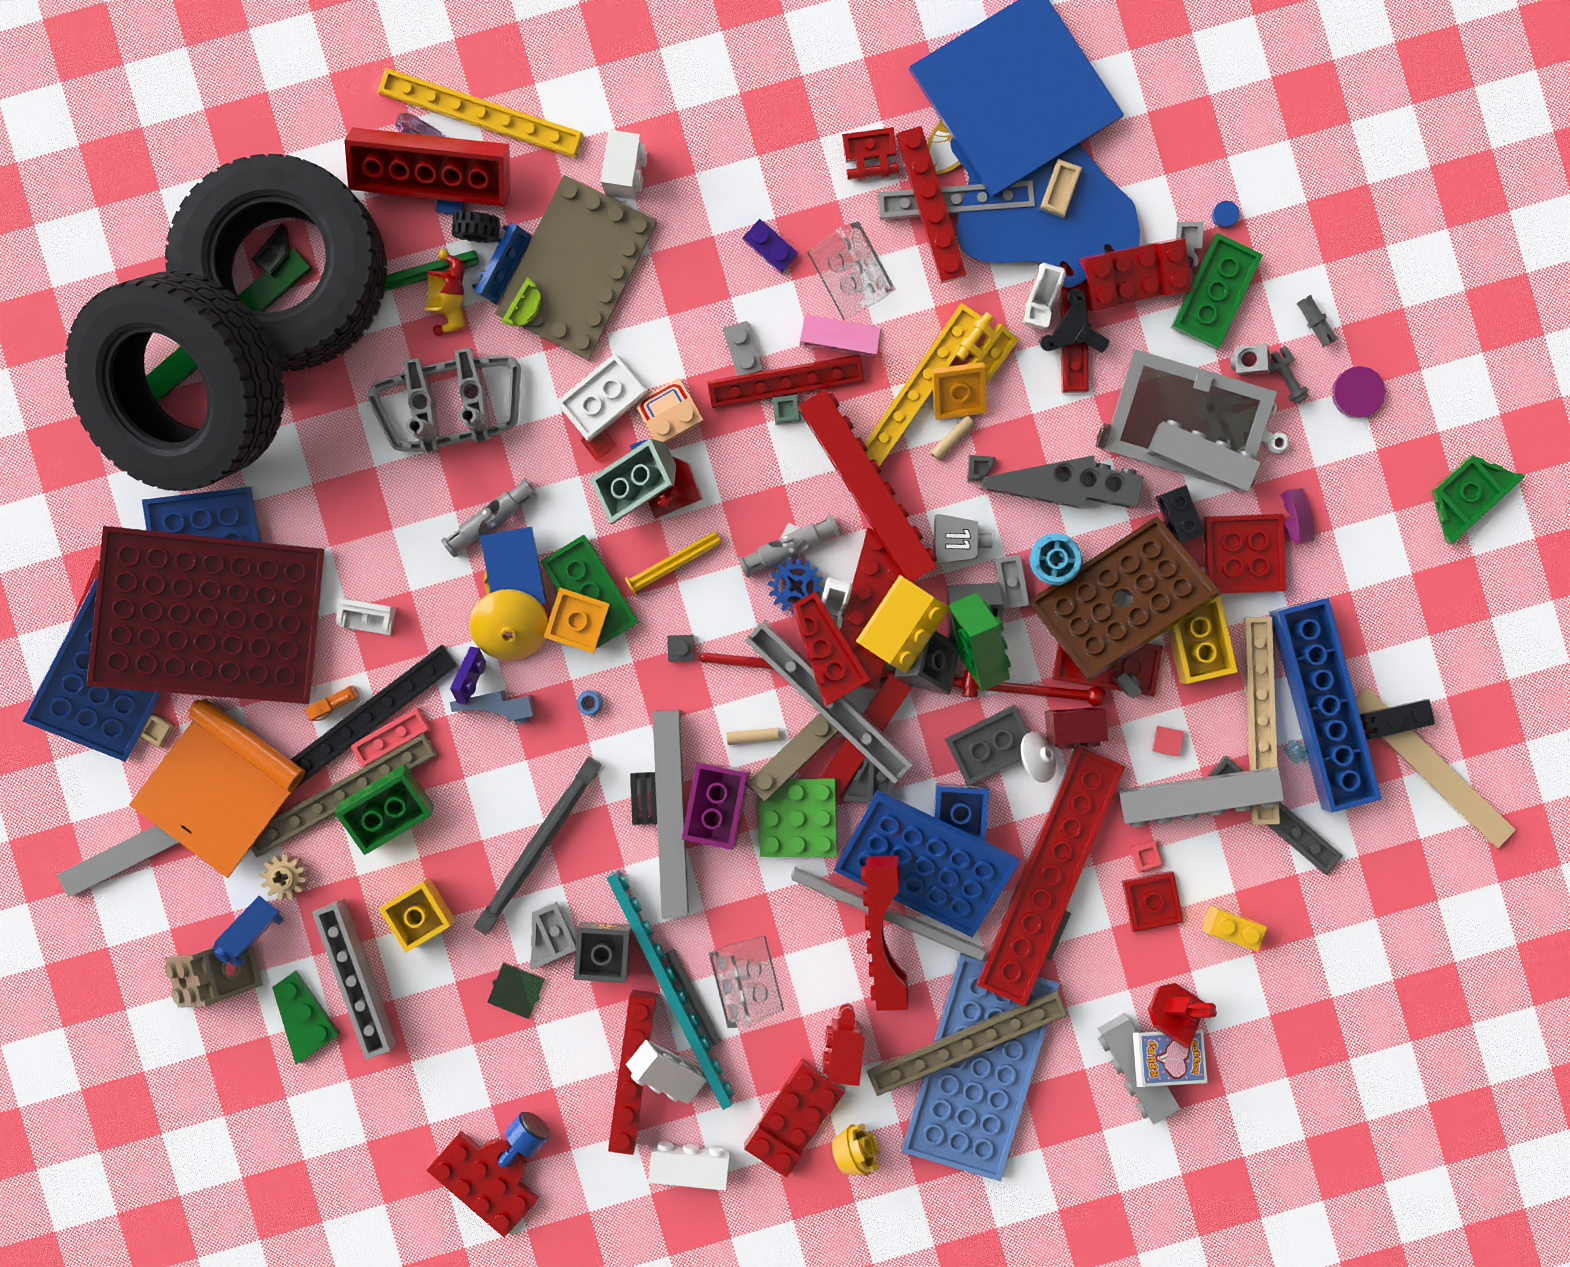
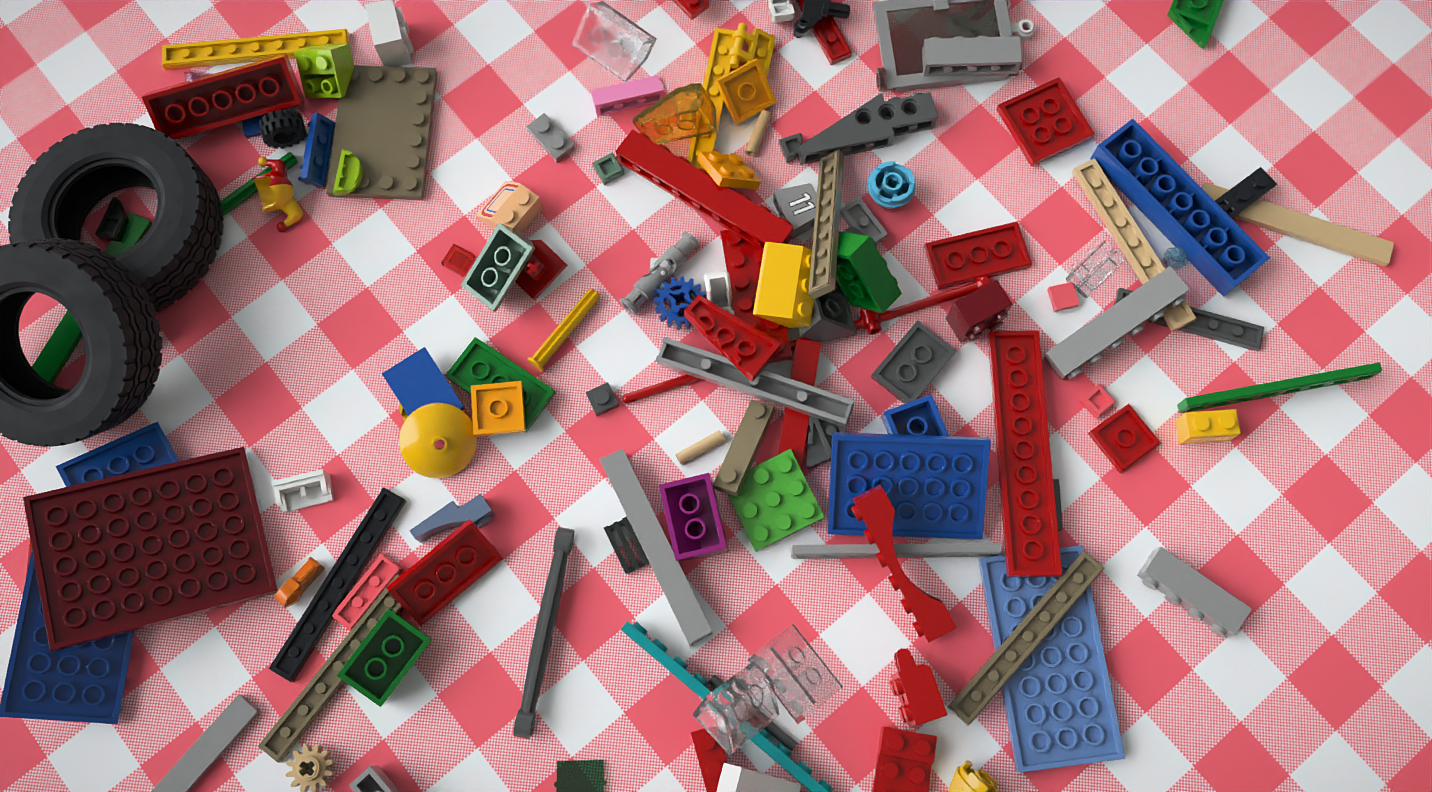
camera: 20 degrees left, 15 degrees down
(157, 730) = (139, 682): tan tile -> none
(218, 786) = (216, 708): orange door -> none
(417, 915) = (454, 746): yellow brick -> none
(467, 754) = (444, 572): none -> red plate
(468, 675) = (417, 499): dark purple plate -> none
(473, 414) = (293, 295): light grey piece -> none
(506, 505) = (389, 352): light grey piece -> none
(542, 176) = (325, 70): none -> lime slope
(550, 936) = (591, 713): light grey wing -> none
(581, 703) = (535, 475): medium blue plate -> none
(602, 397) = (445, 221): white tile -> none
(602, 952) = (647, 703): dark grey brick -> none
(681, 996) = (739, 708): none -> clear slope
(770, 246) = (539, 51): dark purple plate -> none
(785, 381) = (587, 150): red tile -> none
(879, 393) = (679, 115): none -> clear yellow slope
(902, 473) = (729, 170): none -> light orange plate
(969, 580) = (826, 225): none -> dark tan tile
(1038, 757) = (960, 352): white dish -> none
(1128, 684) = (1004, 260): dark grey plate -> none
(1149, 566) = (969, 157): reddish brown plate -> none
(1165, 1062) = (1216, 566): tile -> none
(1178, 1013) = (1202, 521): red piece -> none
(1180, 514) = (975, 112): black brick -> none
(1202, 645) = (1045, 199): yellow brick -> none
(1212, 728) = (1095, 268): none -> clear brick
(1301, 523) = (1076, 76): magenta slope -> none
(1322, 921) = (1279, 388): none -> green tile

